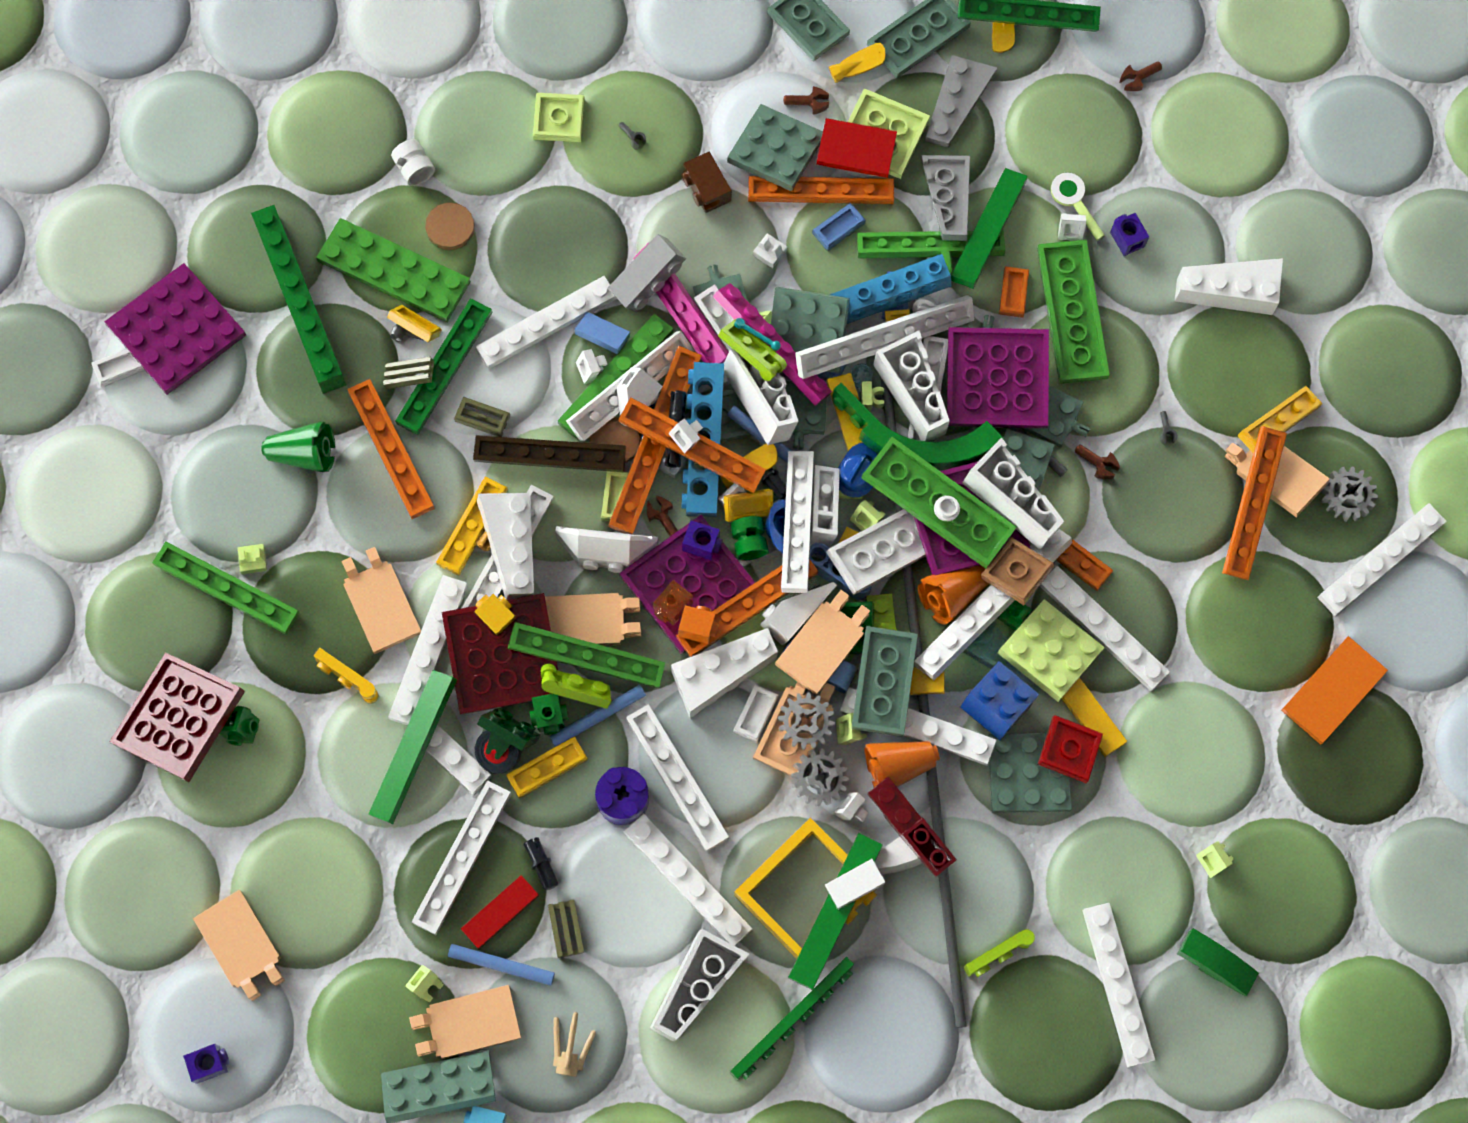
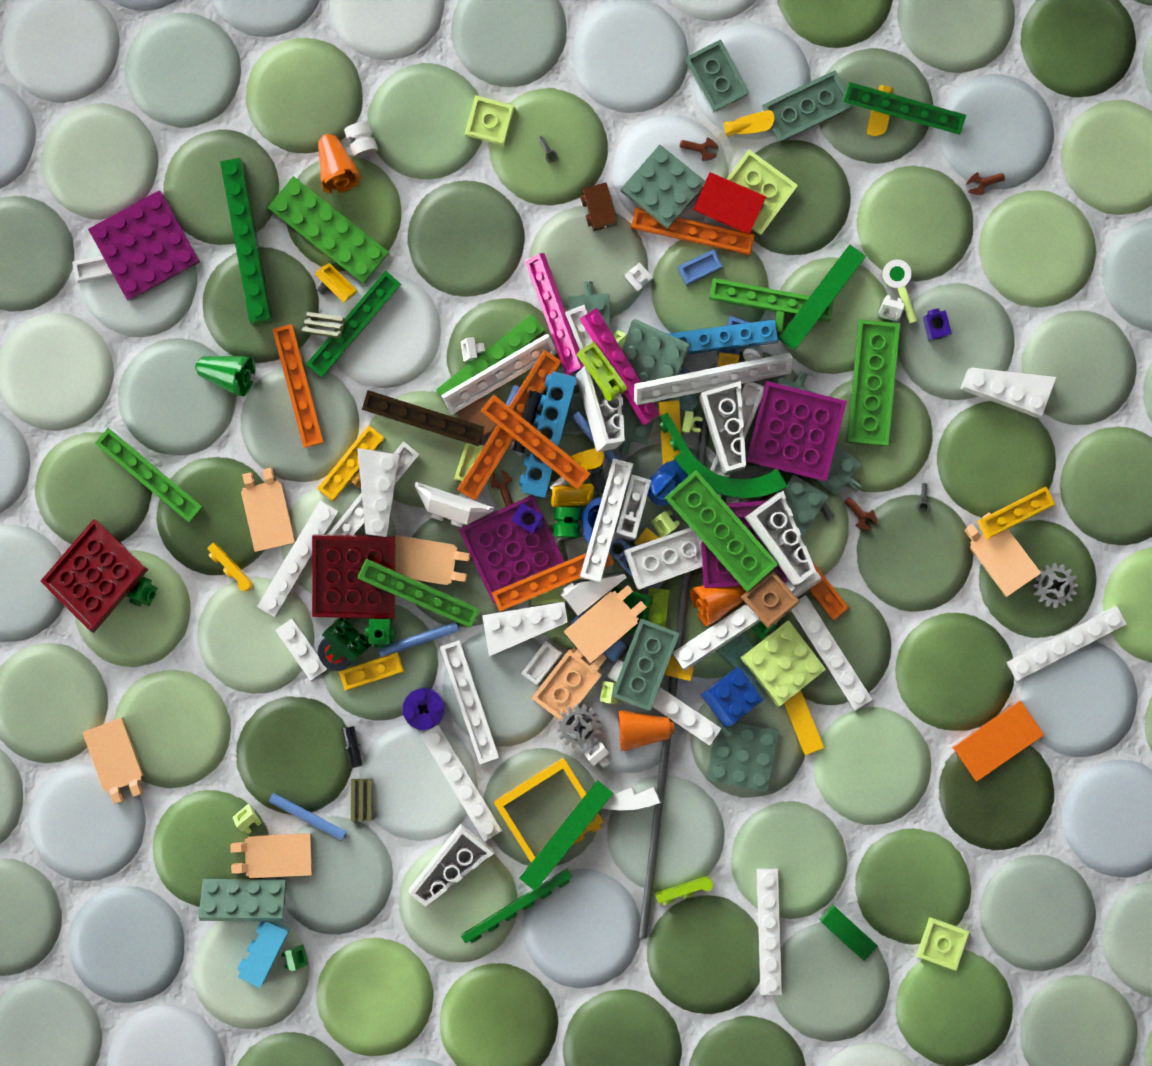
camera: 15 degrees right, 15 degrees up
(194, 1063) = (67, 848): dark purple brick -> none
(252, 559) = (173, 454): yellowish green tile -> none
(390, 196) = (336, 166): none -> orange cone
(412, 747) = (271, 635): tile -> none
(450, 226) = (381, 201): medium nougat tile -> none
(461, 858) = (292, 729): white plate -> none
(478, 425) = (391, 382): olive tile -> none
(495, 612) = (352, 547): yellow brick -> none
(499, 912) = (314, 776): red tile -> none
(545, 322) = (443, 302): white plate -> none
(567, 1063) = (342, 901): tan plant -> none
(575, 687) = (404, 616): lime plate -> none
(602, 333) = (486, 322): medium blue tile -> none
(638, 386) = (502, 383): white slope -> none
(647, 273) = (532, 282): light grey brick -> none
(671, 603) = (493, 565): clear orange brick -> none
(685, 434) = (531, 436): white tile -> none
(698, 624) = (509, 590): orange brick -> none
(740, 323) = (596, 348): teal hinge -> none
(798, 712) = (581, 691): light grey gear -> none
(855, 884) = (584, 820): white tile -> none
(911, 827) = (638, 786): dark red slope -> none
(947, 508) = (725, 540): white plate -> none
(949, 192) = (798, 254): light grey wing -> none
(960, 90) = (827, 169): light grey wing -> none
(1014, 292) = (829, 354): orange tile -> none
(1070, 749) = (777, 746): red tile -> none
(1214, 859) = (867, 854): yellowish green tile -> none
(1254, 503) = (975, 579): orange tile -> none
(1338, 952) = (943, 943): none -> yellowish green tile

